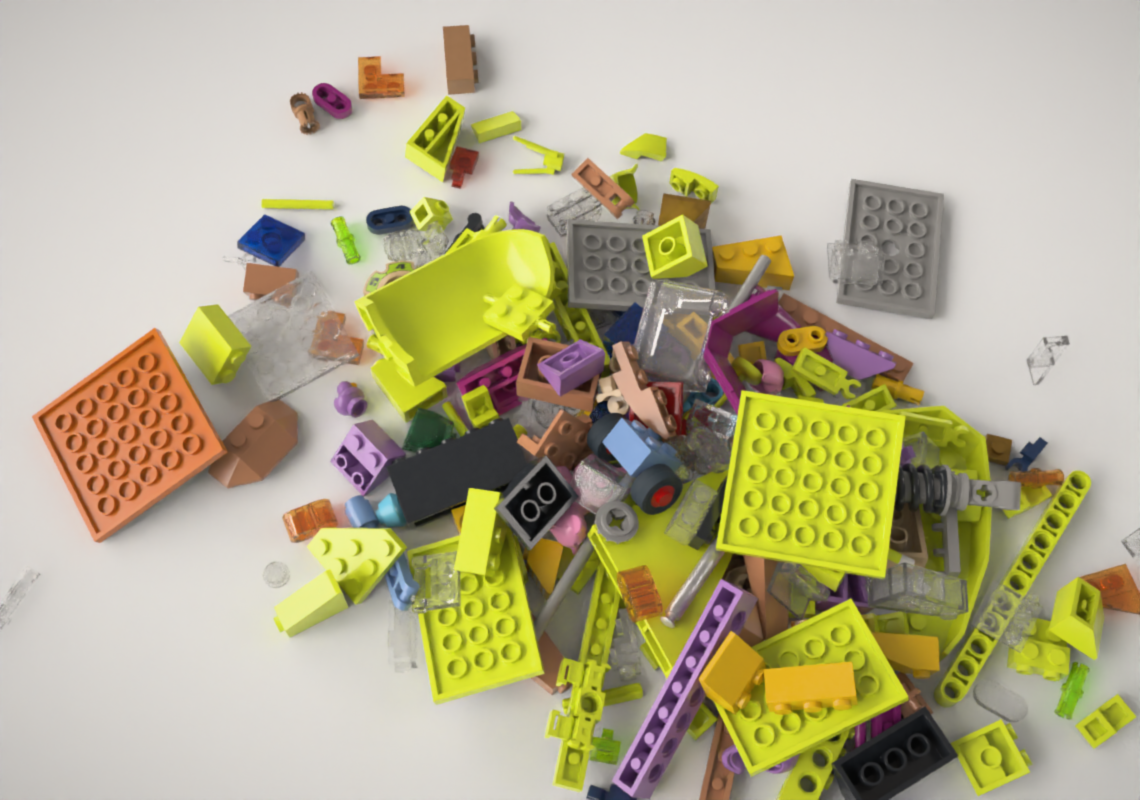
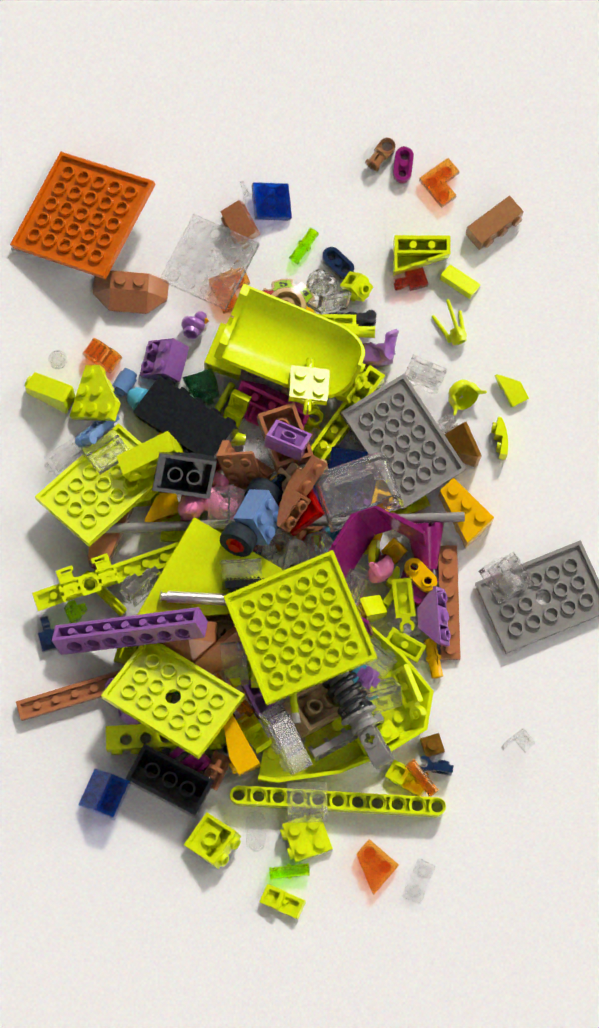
camera: 55 degrees right, 10 degrees up
(215, 344) = (173, 221): neon yellow brick -> none
(297, 204) = (311, 198): neon yellow bar -> none
(602, 188) = (447, 380): nougat plate -> none
(617, 510) = (212, 527): light grey gear -> none
(639, 593) = (166, 569): clear orange beam -> none
(675, 249) = (427, 454): neon yellow slope -> none
(733, 674) = (151, 650): yellow slope -> none
(810, 688) = (169, 698): yellow brick -> none
(1079, 616) = (337, 851): neon yellow slope -> none

